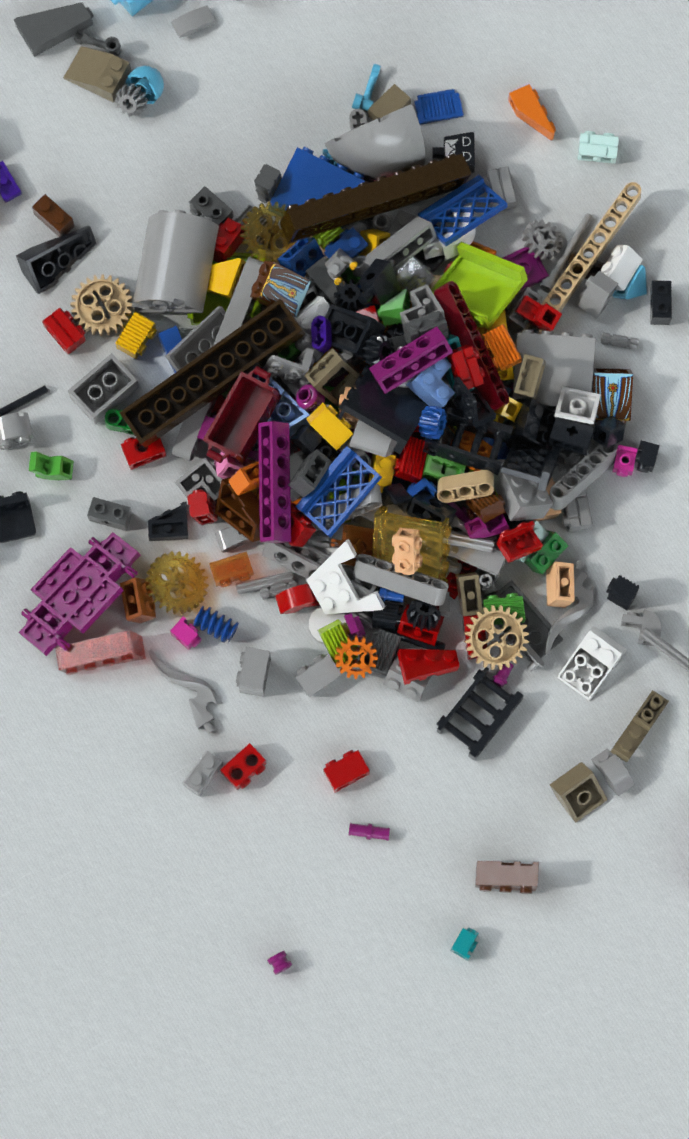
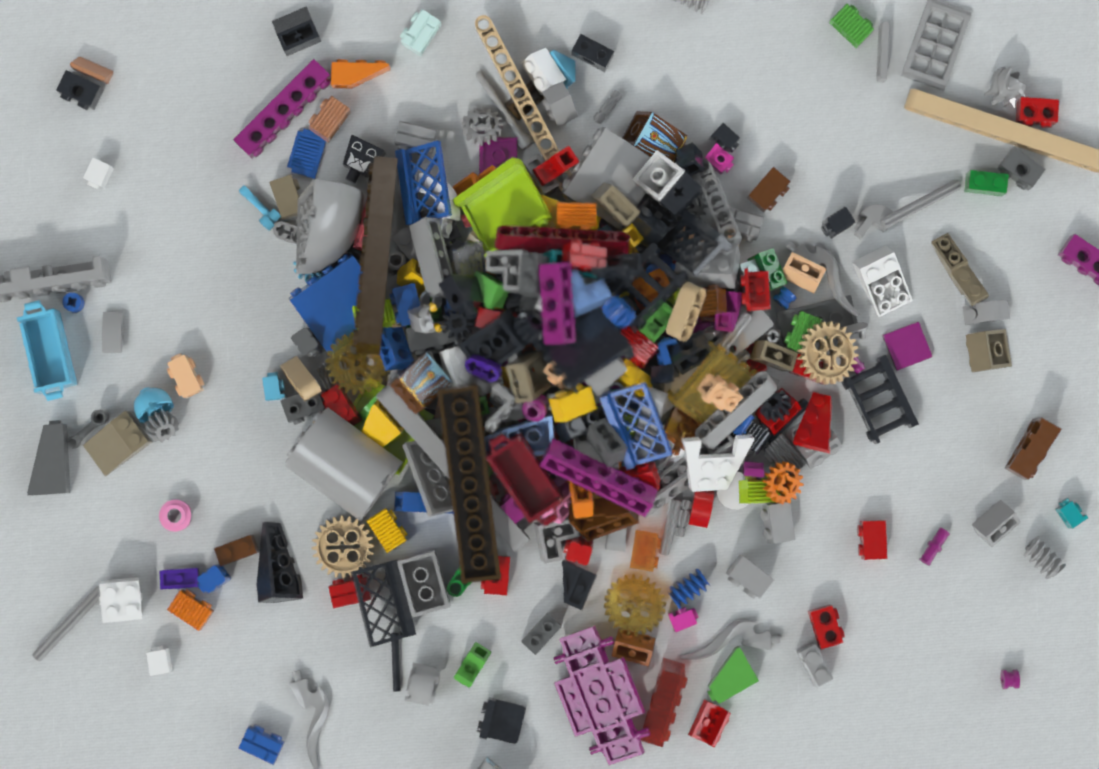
camera: 70 degrees left, 10 degrees up
(17, 207) = (213, 579): none -> blue brick
(54, 159) = (185, 519): none -> bright pink piece
(62, 388) = (398, 597): none -> black fence
(101, 704) = (709, 723): none -> red bracket
(154, 704) = (732, 677): none -> bright green slope
(185, 98) = (182, 370): none -> light nougat brick
(214, 176) = (273, 387): none -> medium azure brick
(233, 193) = (300, 378): none -> tan beam
(408, 937) = (1043, 558): none -> light grey piece
(419, 875) = (996, 523): none -> light grey brick
(460, 57) = (284, 98): none -> magenta brick
(478, 108) = (329, 119): none -> nougat brick
(528, 581) = (784, 297): none -> blue wheel
(540, 43) = (296, 31): none -> black slope
(543, 716) = (907, 346): none -> magenta tile
(620, 517) = (768, 189): none -> reddish brown brick

